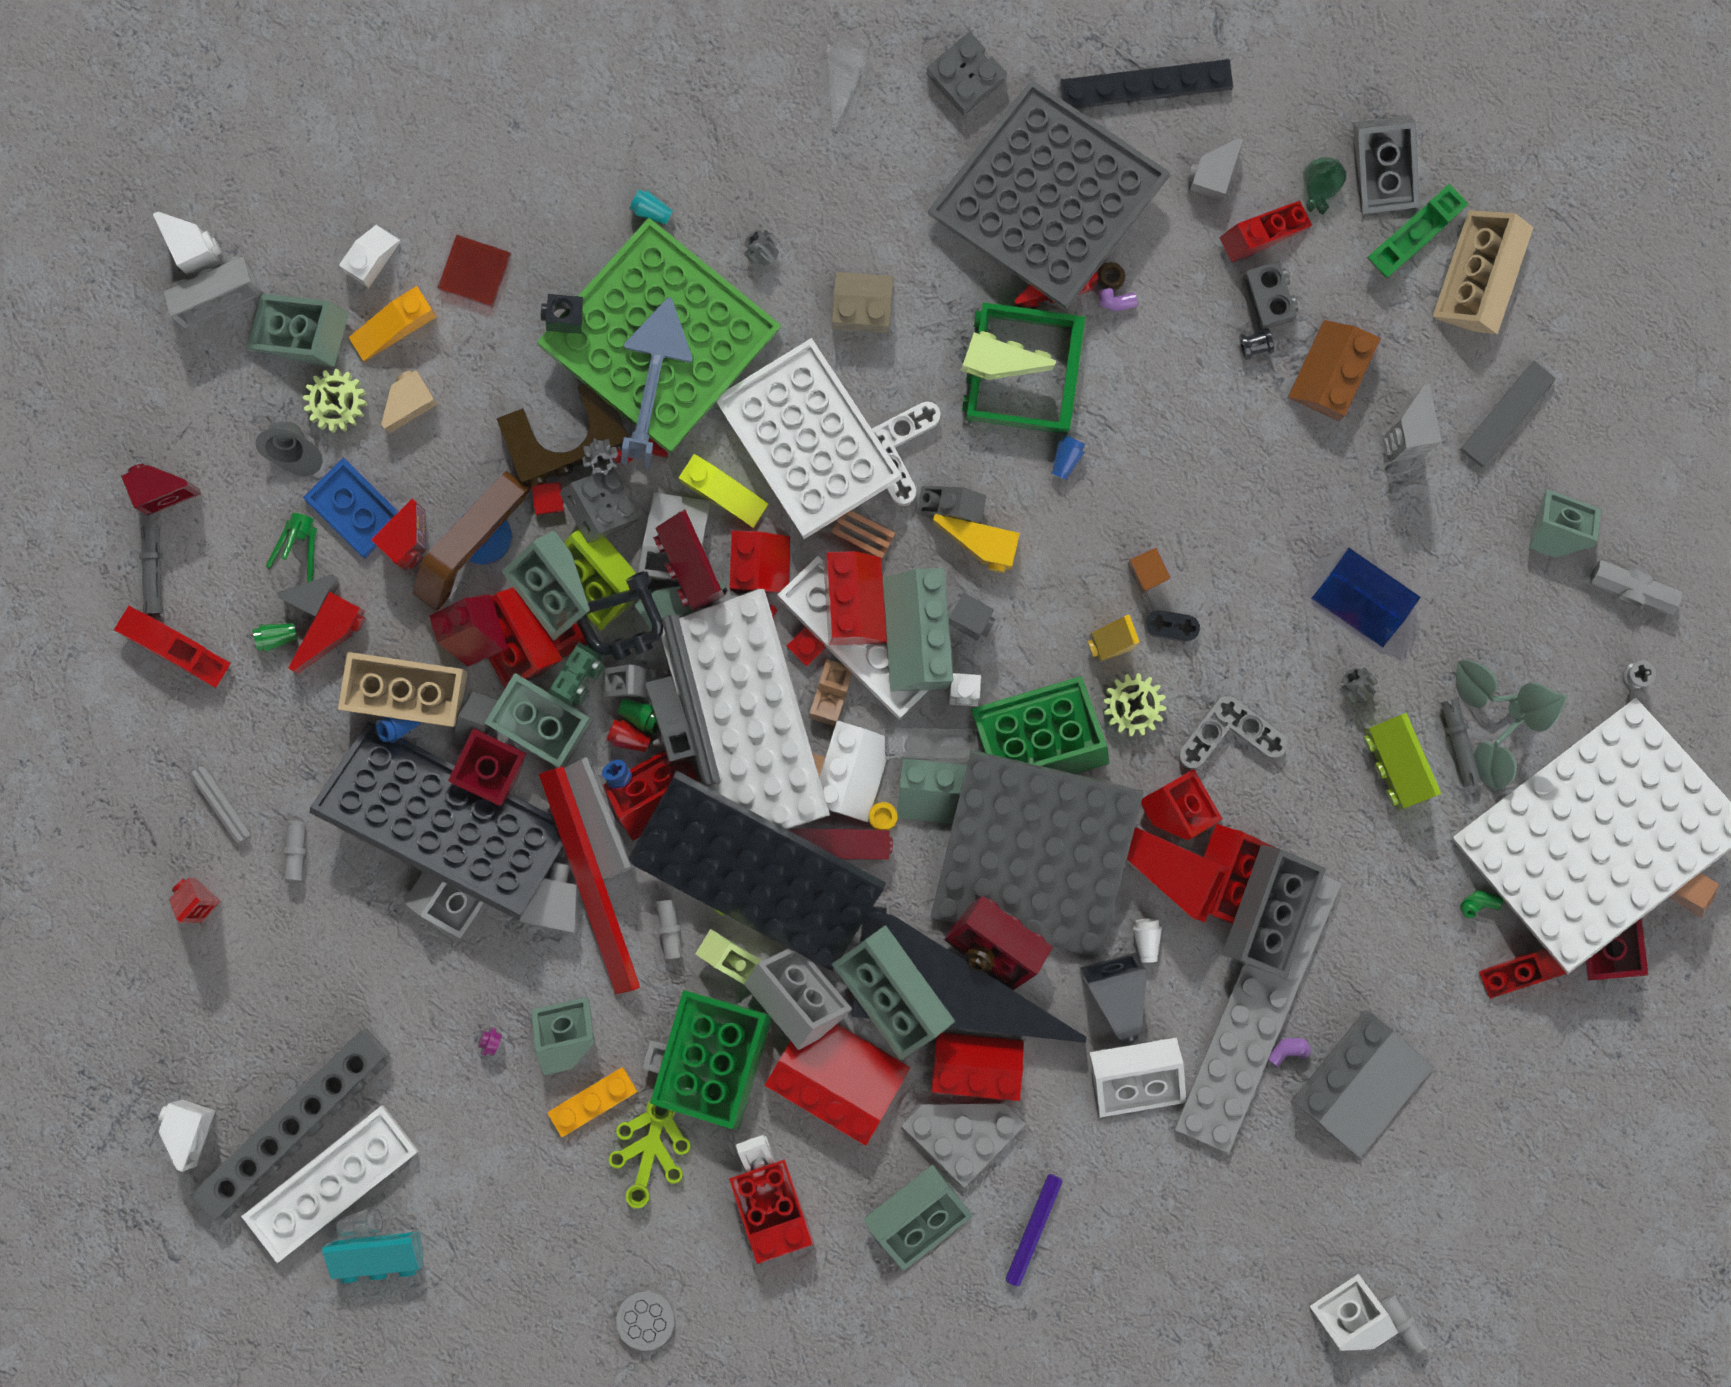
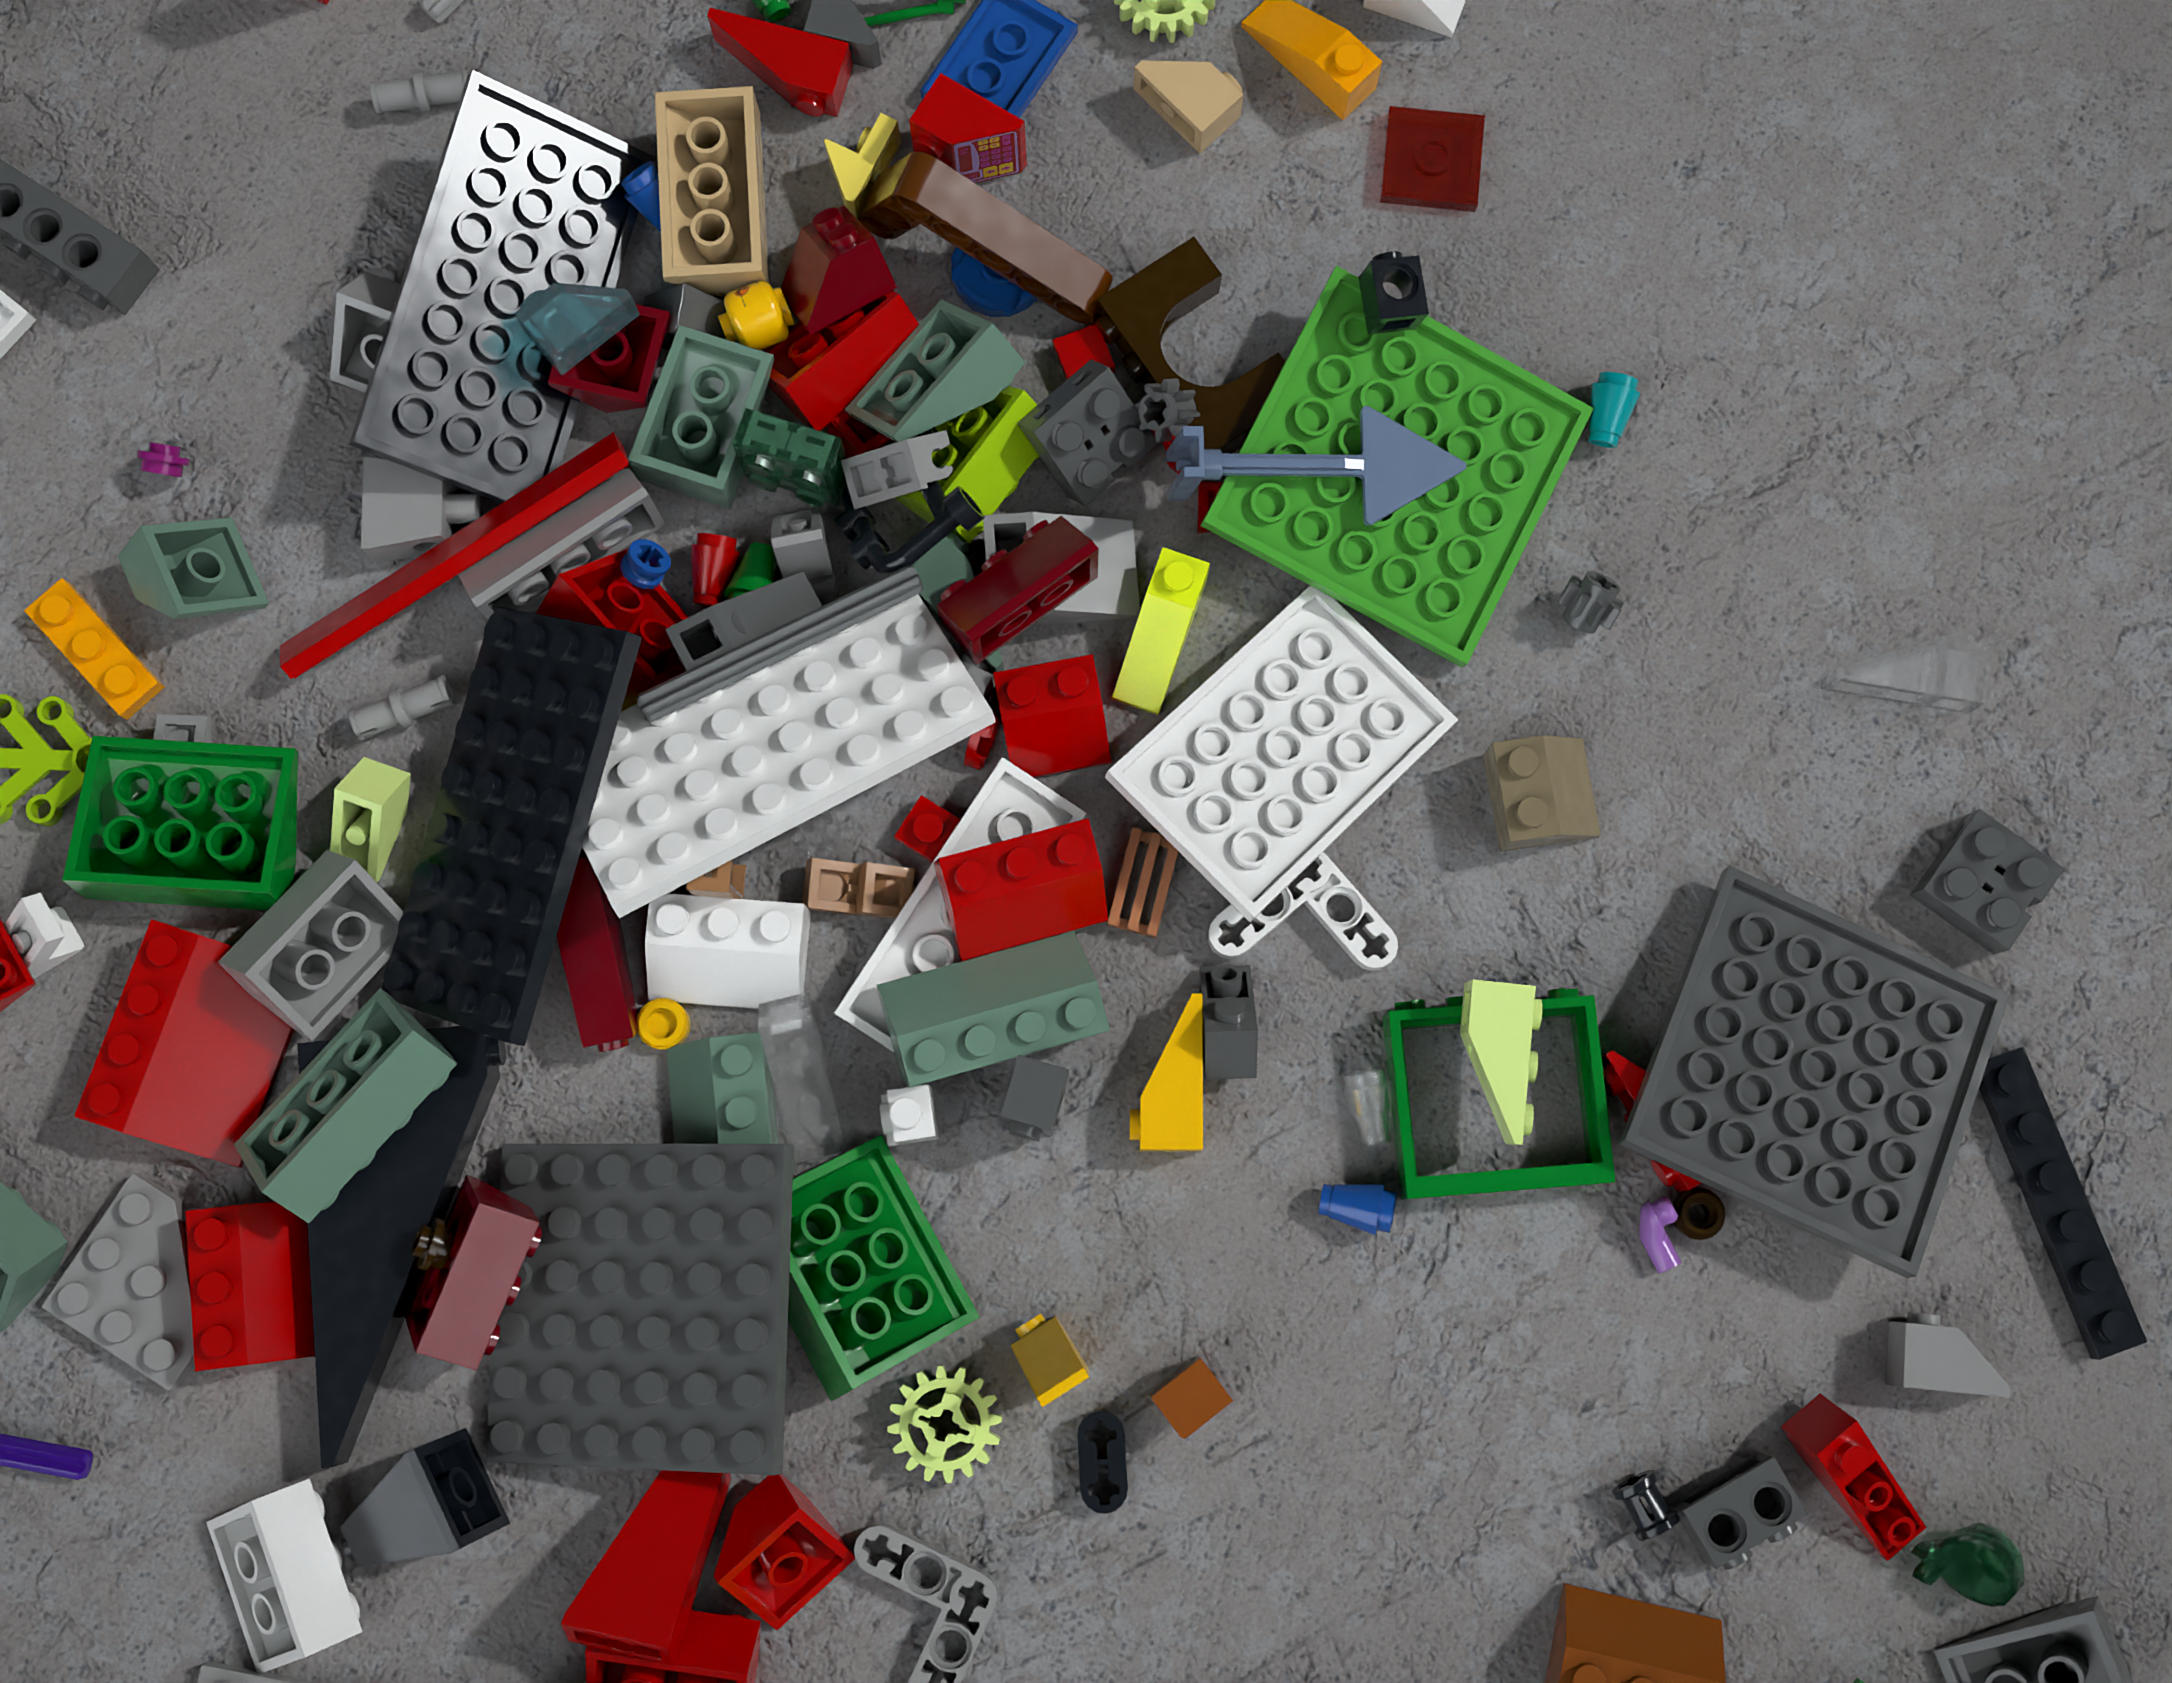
camera: 75 degrees right, 5 degrees down
(408, 607) = (858, 171): none -> light yellow slope
(470, 782) = (574, 320): none -> clear light blue slope
(484, 680) = (756, 316): none -> yellow head
(603, 619) = (894, 469): none -> light grey hinge
(1013, 438) = (1370, 1104): none -> clear cone
(1147, 938) = (534, 1540): white cone -> none

